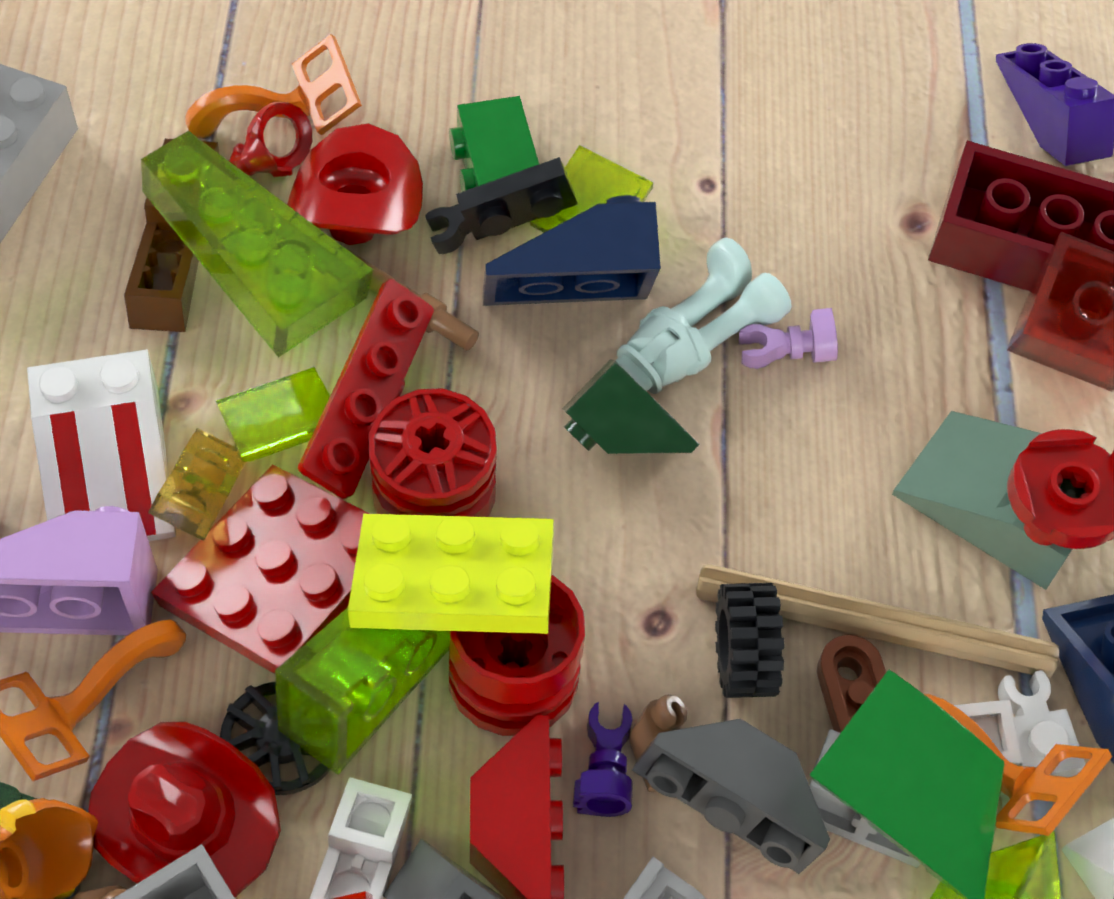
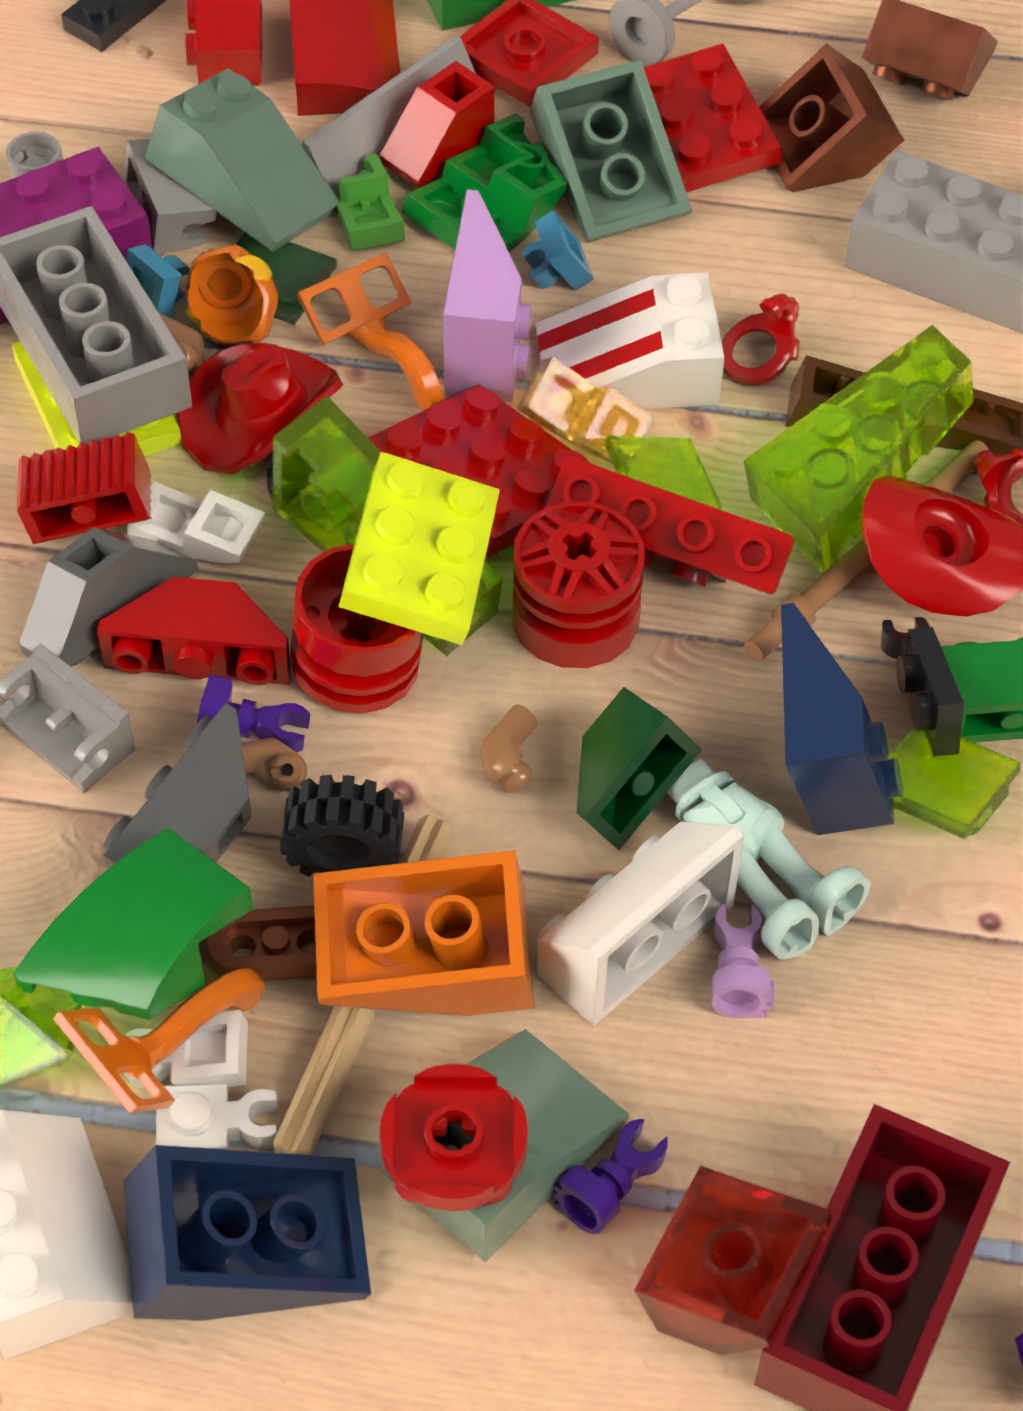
camera: 100 degrees right, 5 degrees down
(72, 322) = (779, 322): none -> red piece
(609, 534) = (502, 750): none -> medium nougat arm
(785, 395) = (640, 917): none -> white slope
(846, 555) = (425, 936): none -> orange slope
(995, 410) = (593, 1196): none -> dark purple piece

